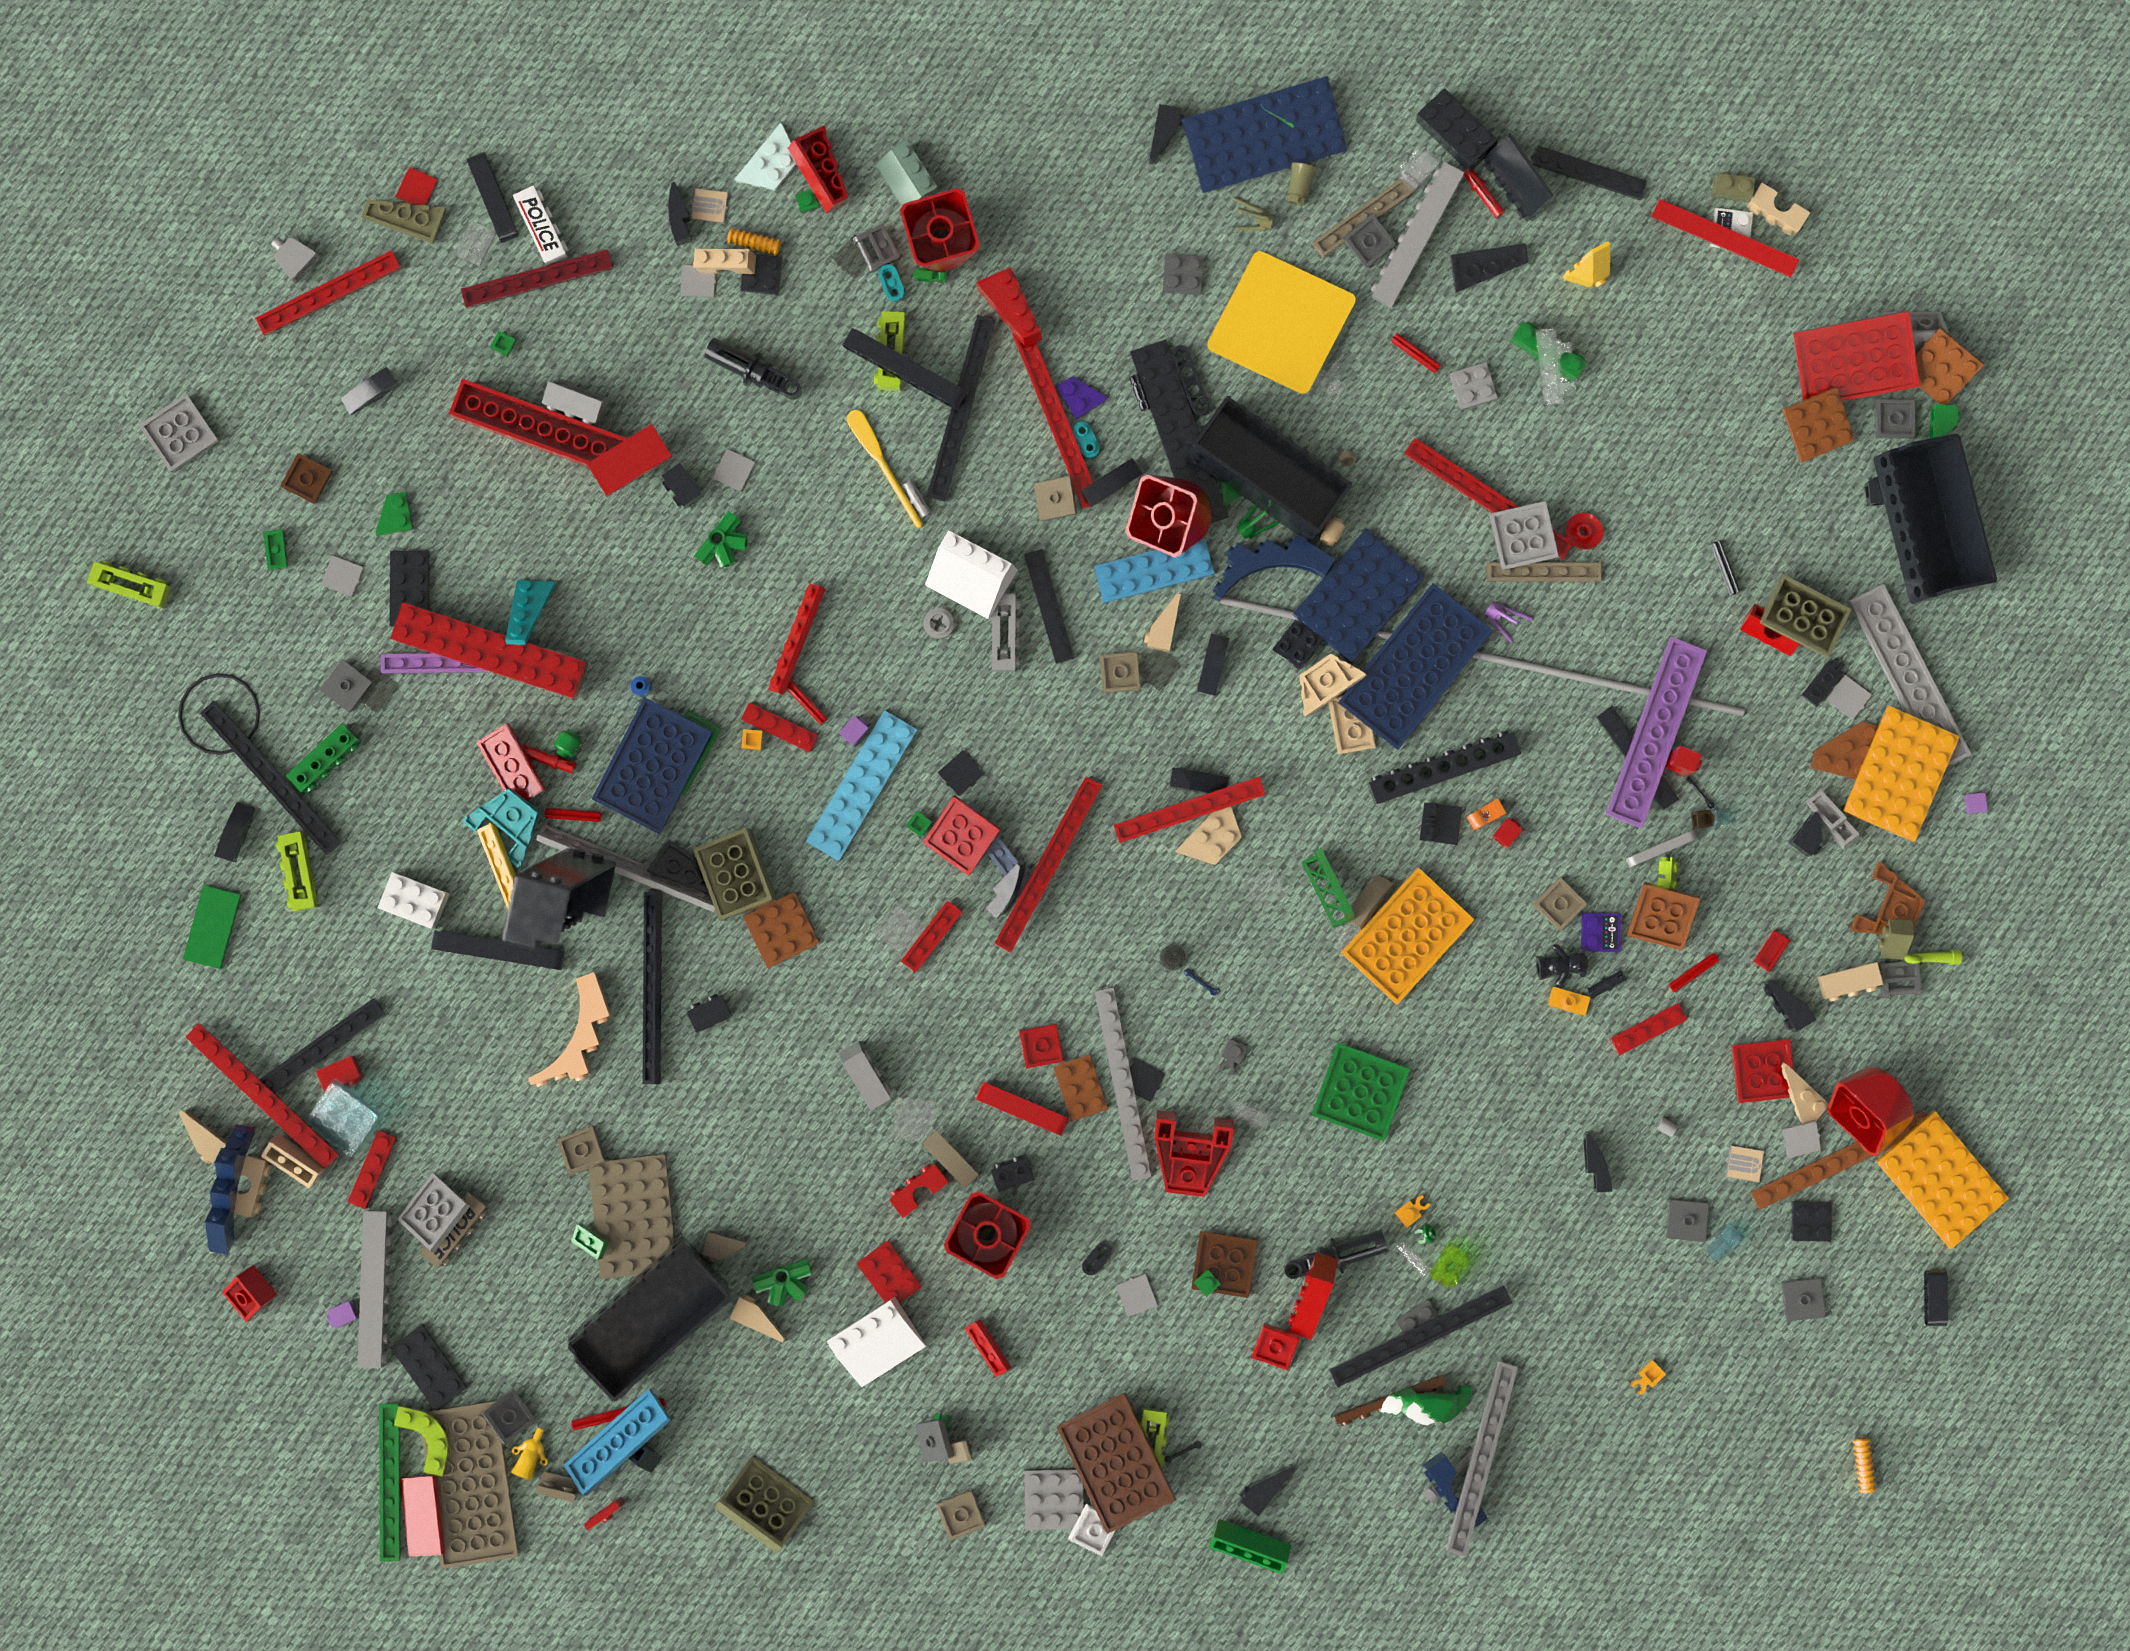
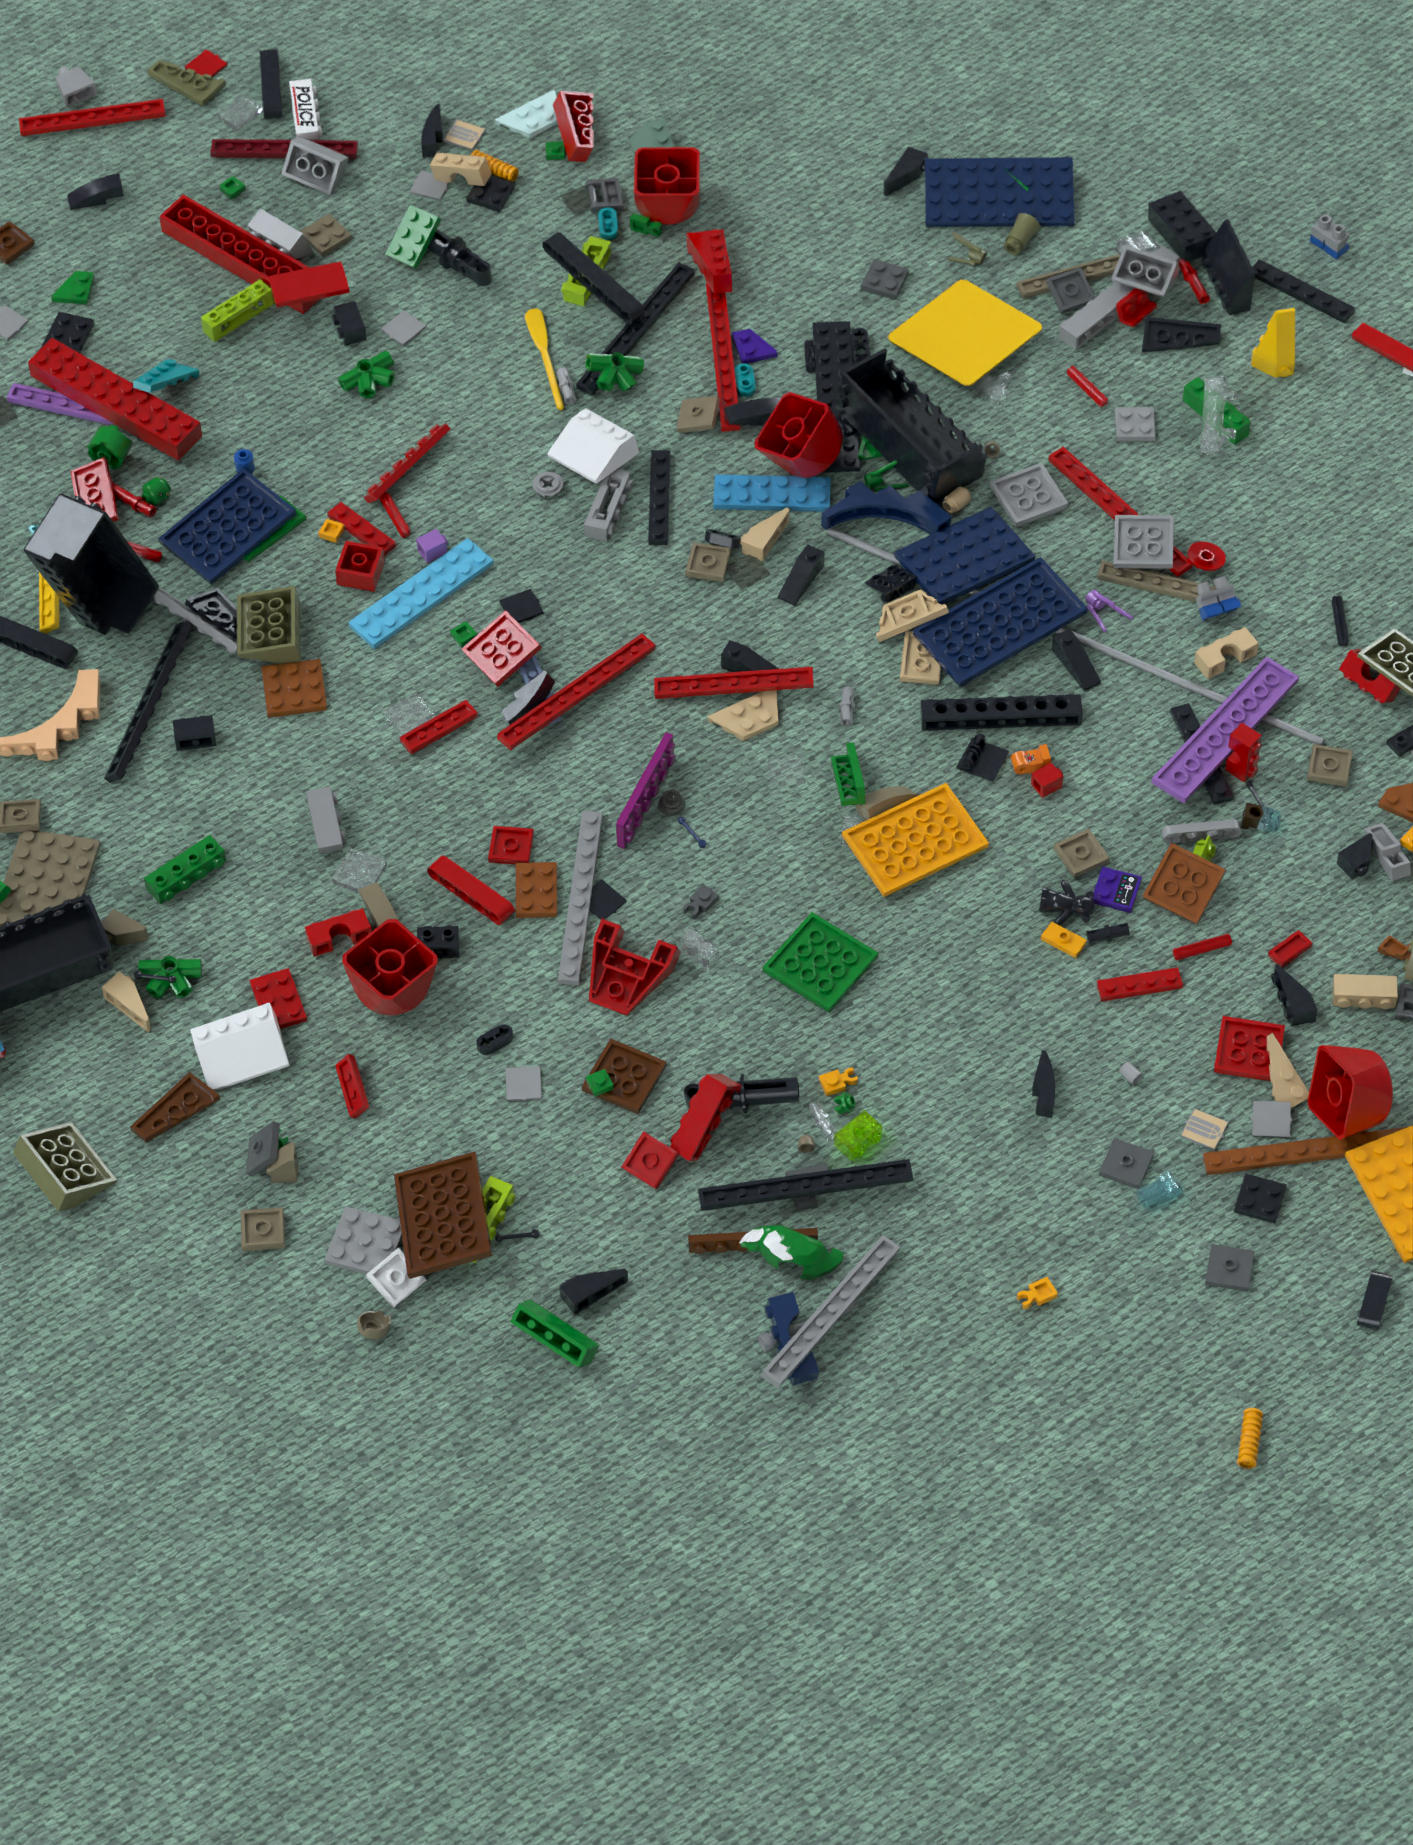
camera: 20 degrees right, 30 degrees down
(505, 708) = (111, 444): none -> green brick
(565, 501) = (236, 310): none -> lime brick
(576, 296) = (314, 165): none -> light grey slope
(617, 375) = (326, 235): none -> dark tan plate
(708, 363) = (413, 236): none -> plate
(755, 1164) = (185, 869): none -> green brick
(790, 1292) = (138, 975): none -> black hinge
(795, 778) = (360, 566): none -> red brick
(839, 1414) = (178, 1104): none -> reddish brown wing
(965, 476) = (611, 373): none -> green piece
(1091, 1582) = (373, 1324): none -> dark tan hair
(1125, 642) = (722, 538): none -> black beam
(1149, 951) = (644, 791): none -> magenta plate
(1299, 801) = (847, 706): none -> light grey pin
(1397, 503) = (1028, 495): none -> light grey plate
(1404, 1284) = (806, 1144): none -> dark tan hinge
(1438, 245) = (1134, 307): none -> red bracket
(1441, 211) = (1146, 271): none -> light grey slope
(1496, 688) = (1075, 660): none -> black slope
(1603, 99) = (1330, 237): none -> light grey hips
(1609, 582) = (1216, 601): none -> hips
(1619, 650) = (1238, 644): none -> tan arch
(1757, 738) = (1329, 765): none -> dark tan plate

